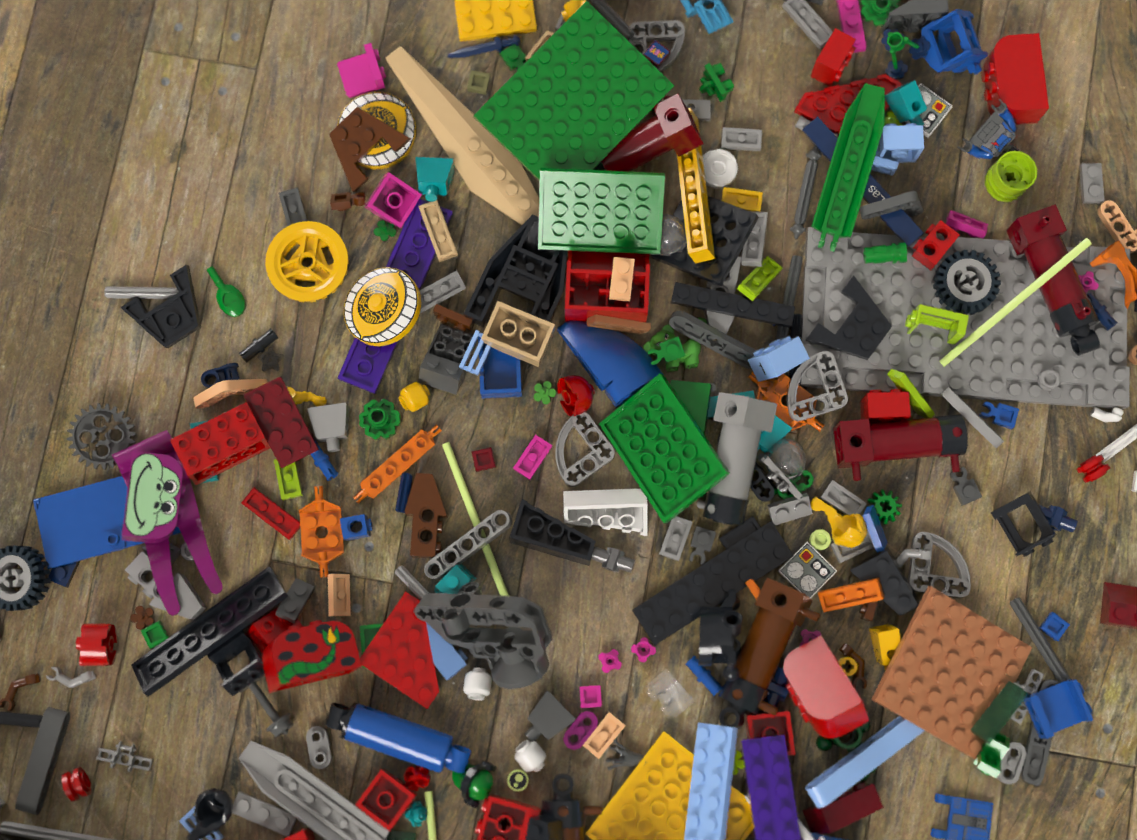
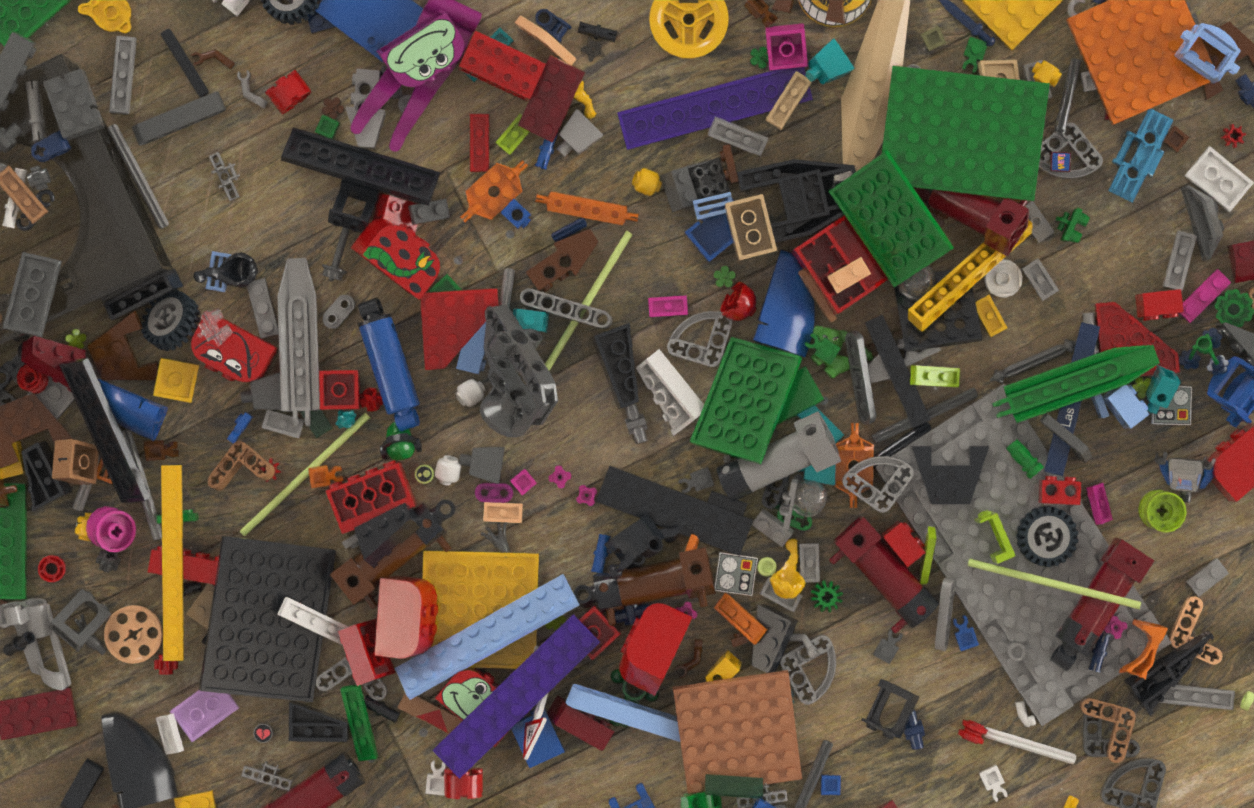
camera: 55 degrees right, 10 degrees up
(76, 784) = (181, 157): red wheel -> none
(339, 595) = (457, 241): light nougat plate -> none
(379, 419) = (610, 169): green plant -> none
(382, 306) = (696, 105): dish -> none
(483, 459) = (639, 270): dark red tile -> none
(669, 694) = (568, 537): clear slope -> none
(675, 538) = (686, 458): light grey plate -> none
(754, 246) = (958, 353): light grey plate -> none
(778, 358) = (879, 436): light blue brick -> none
(850, 661) = (687, 647): yellow bush -> none
(874, 528) = (803, 601): blue tile -> none

